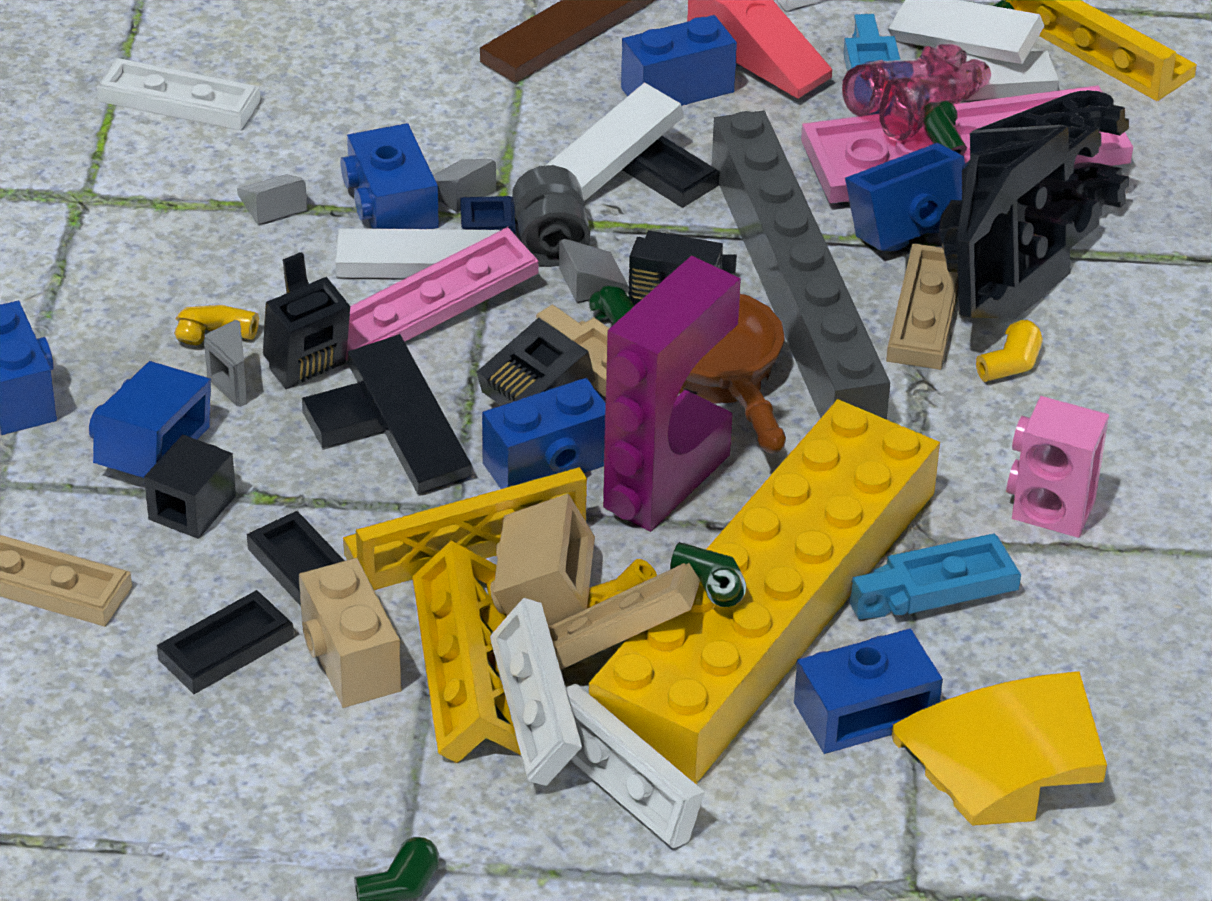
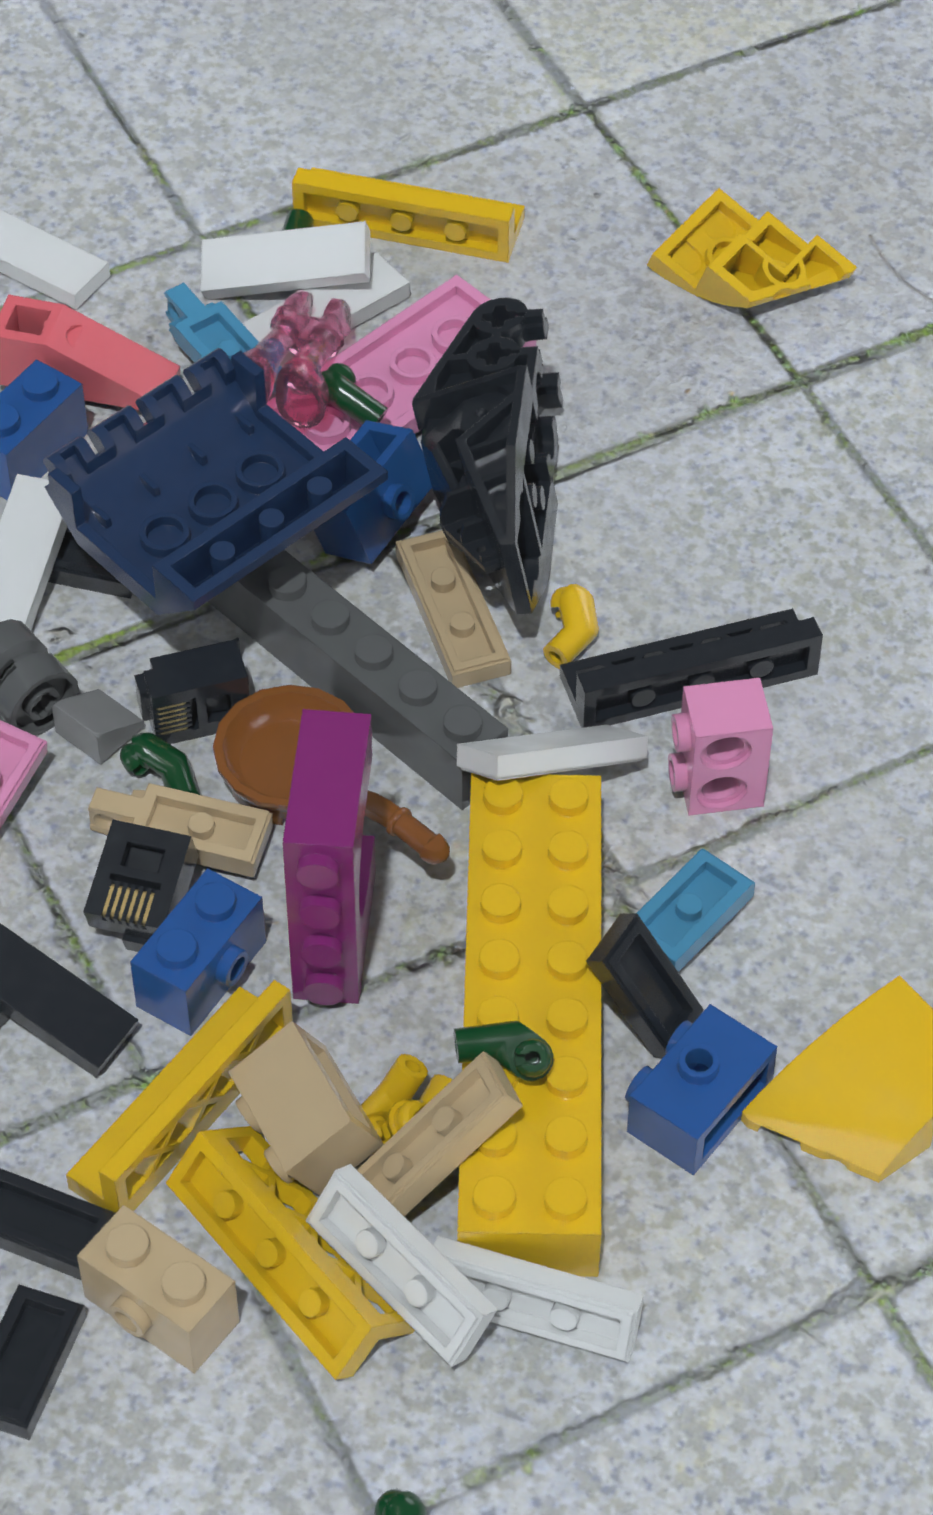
camera: 30 degrees left, 10 degrees up
(761, 119) = (200, 485): none -> dark blue slope
(867, 586) = (643, 982): none -> black tile
(917, 415) = (551, 752): none -> white tile
(1133, 429) = (653, 675): none -> black fence

